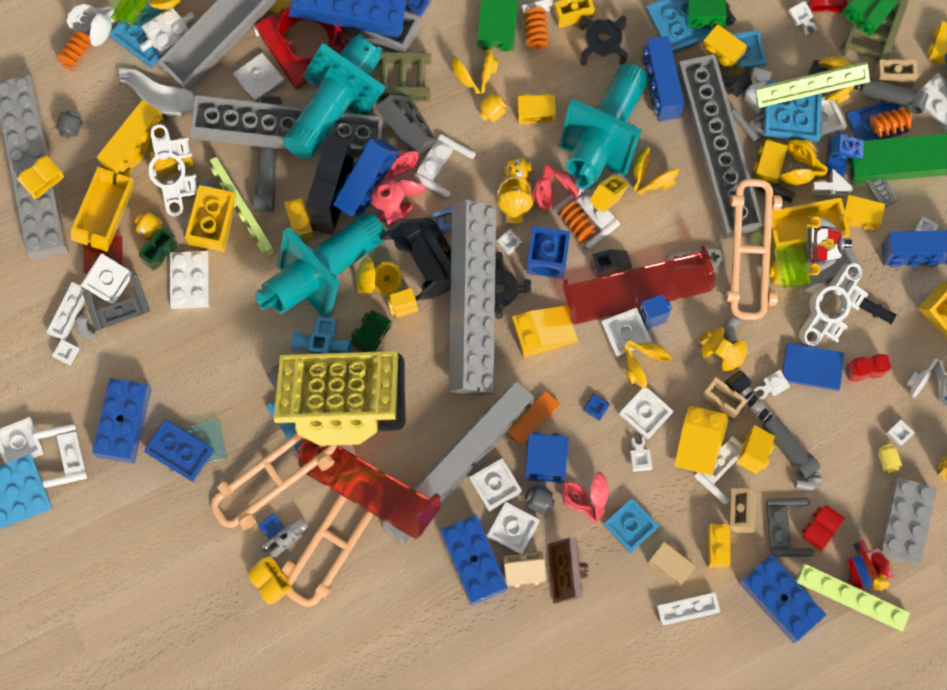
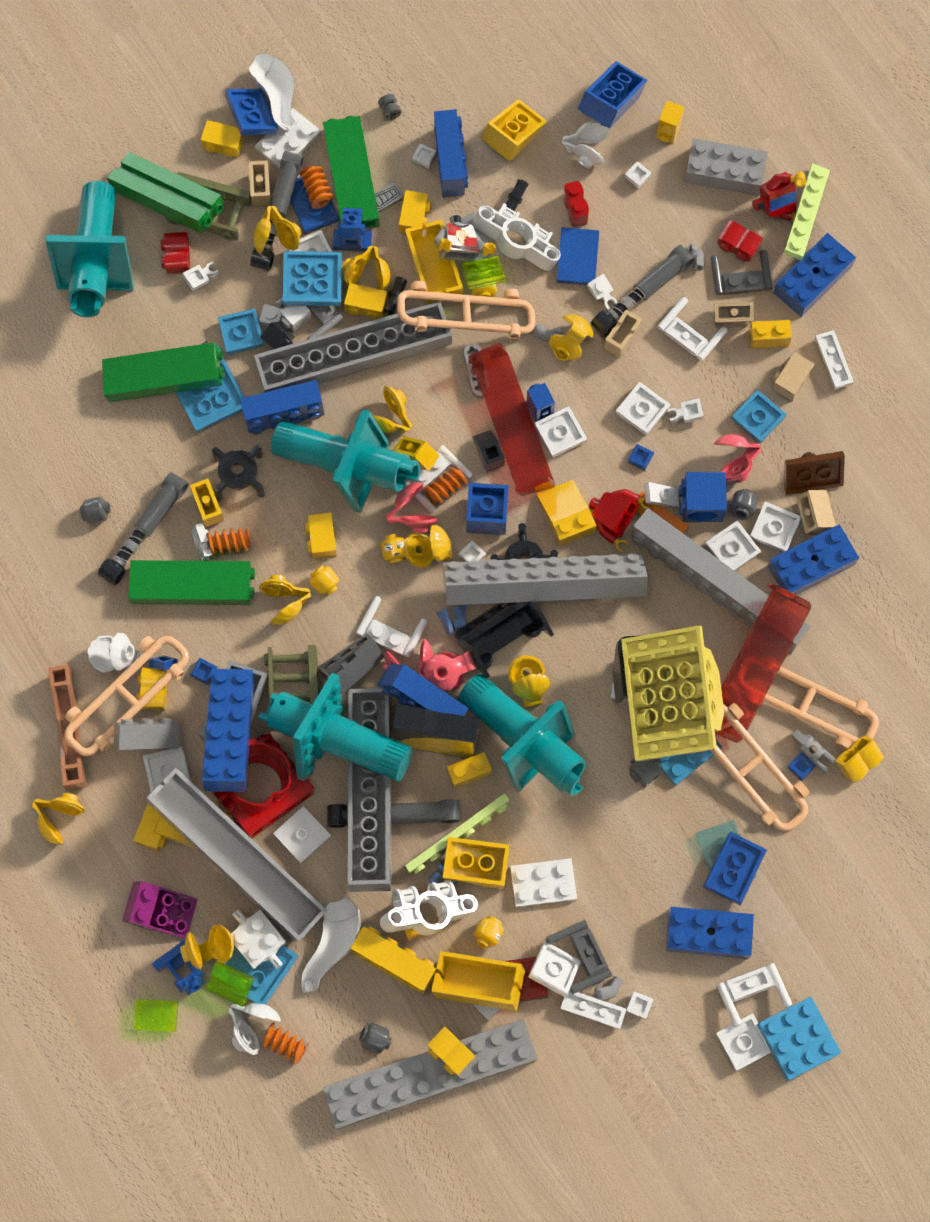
camera: 95 degrees left, 0 degrees up
(161, 245) = (511, 914): dark green brick -> none
(322, 339) = (604, 732): dark azure brick -> none
(371, 332) = (586, 684): dark green brick -> none
(402, 303) = (554, 651): yellow brick -> none
(537, 373) = (614, 513): none -> red torso
(552, 417) = (661, 495): none -> white plate
(635, 372) = (605, 418): yellow animal -> none
(701, 440) = (668, 353): yellow slope -> none
(724, 46) = (243, 347): yellow brick -> none
(756, 449) = (673, 301): yellow brick -> none
(812, 84) = (290, 254): yellowish green plate -> none
(835, 187) = (385, 239): white slope -> none
(889, 459) = (665, 183): light yellow brick -> none

